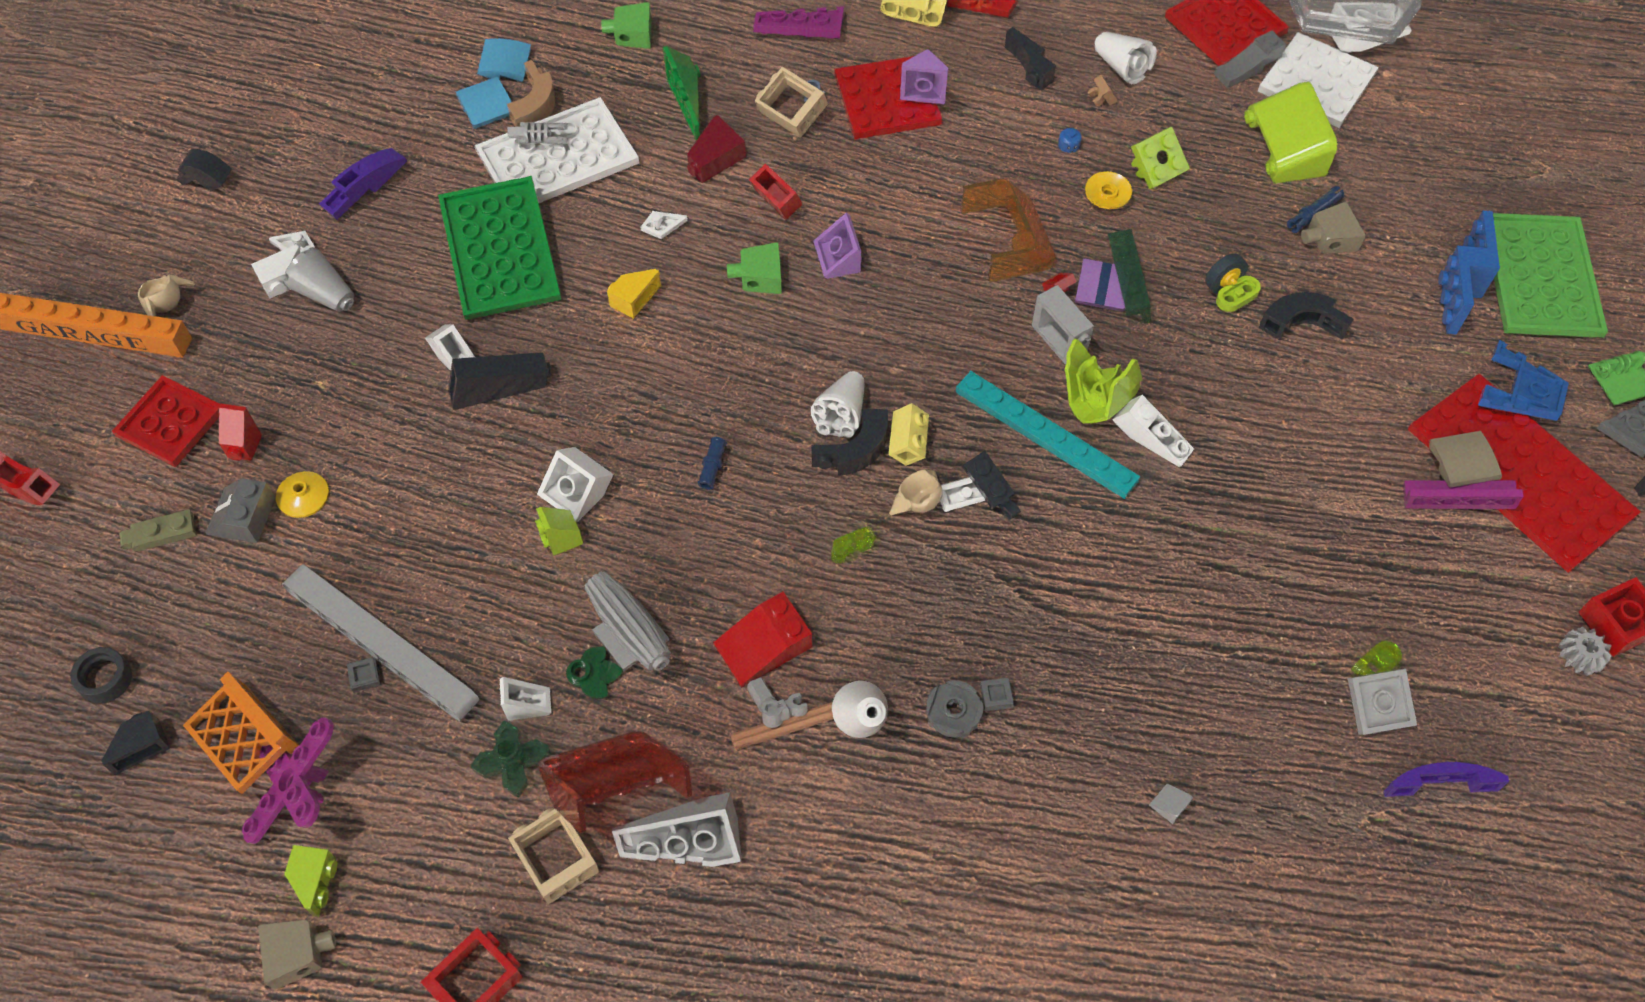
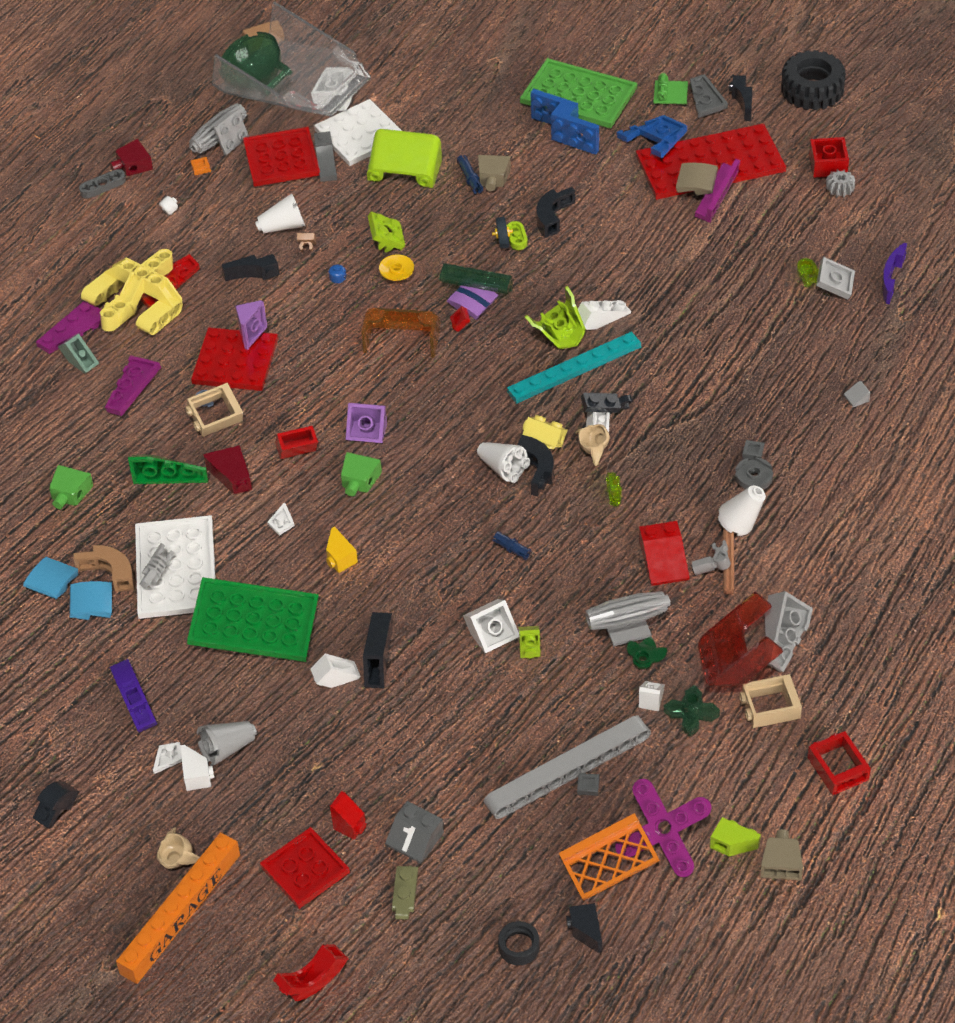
camera: 65 degrees left, 10 degrees down
(306, 502) = (423, 798): yellow dish -> none
(1060, 321) = (500, 315): light grey window -> none

